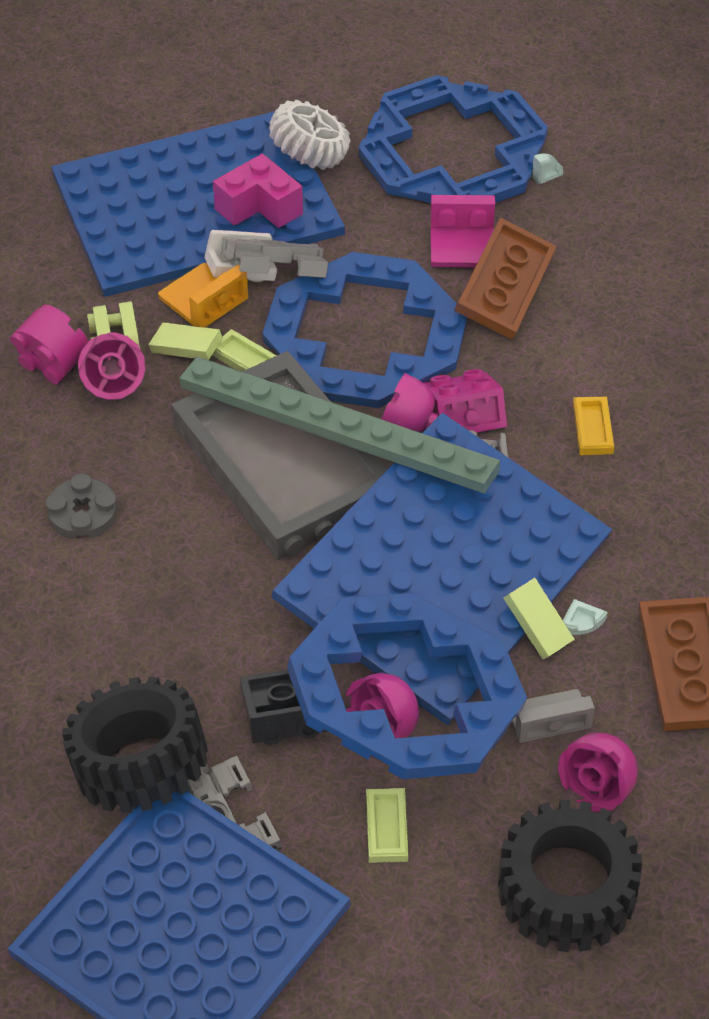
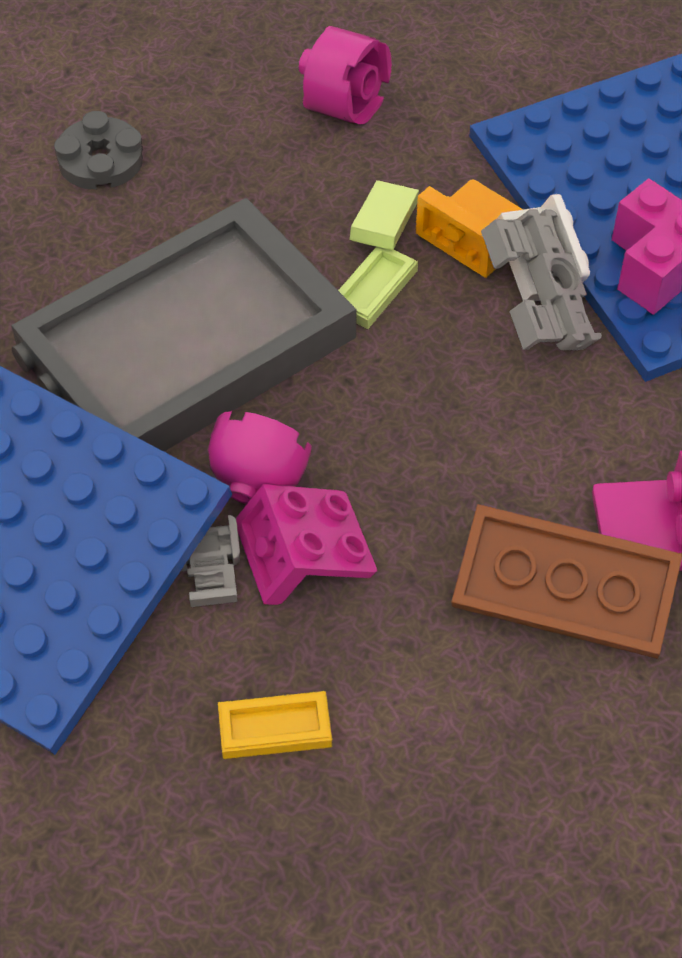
camera: 85 degrees right, 5 degrees up
(101, 323) = (390, 143): yellowish green brick -> none
(111, 366) = (309, 136): dark pink cylinder -> none
(341, 424) = (182, 376): sand green plate -> none
(422, 299) = (365, 468): blue plate -> none

